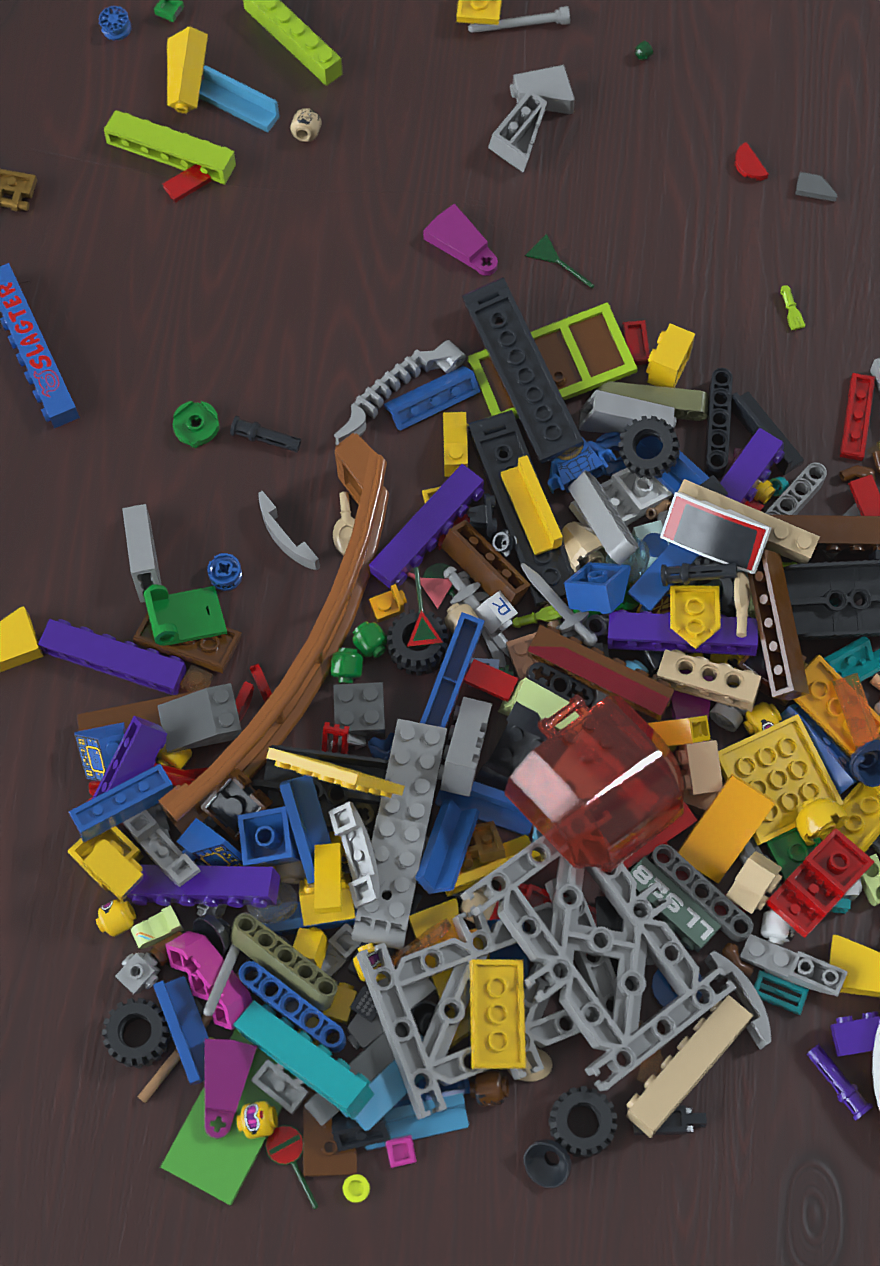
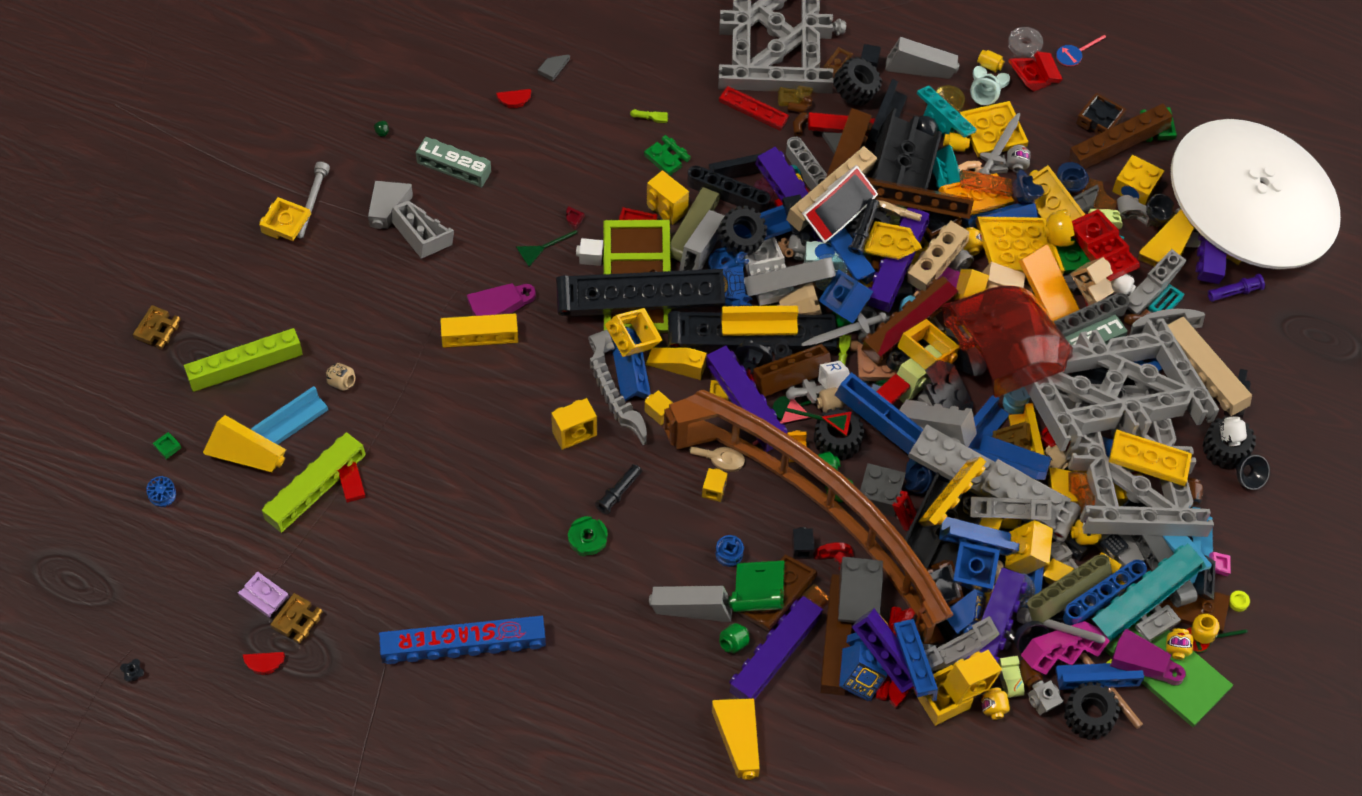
camera: 75 degrees left, 10 degrees down
(27, 151) = (263, 594): none -> lavender plate
(114, 608) = (734, 638): none -> green head
(260, 645) = (803, 543): none -> black brick
(290, 1139) = (1205, 628): none -> yellow head
(301, 553) = (689, 506): light grey slope -> none
(305, 529) = (714, 484): none -> yellow brick
(324, 359) = (574, 423): none -> yellow brick
(327, 878) = (1023, 531): yellow tile -> none
(385, 440) = (655, 406): none -> yellow brick
(414, 231) = (479, 330): none -> yellow panel
(477, 393) = (639, 320): none -> yellow window
(565, 303) = (590, 252): none -> white brick
(574, 681) = (935, 337): none -> yellow window
(585, 1117) = (1233, 431): none -> white head
(610, 277) = (574, 217): none -> dark red tile
(629, 132) = (453, 161): none -> sand green brick
(735, 341) = (663, 159): none -> green plate

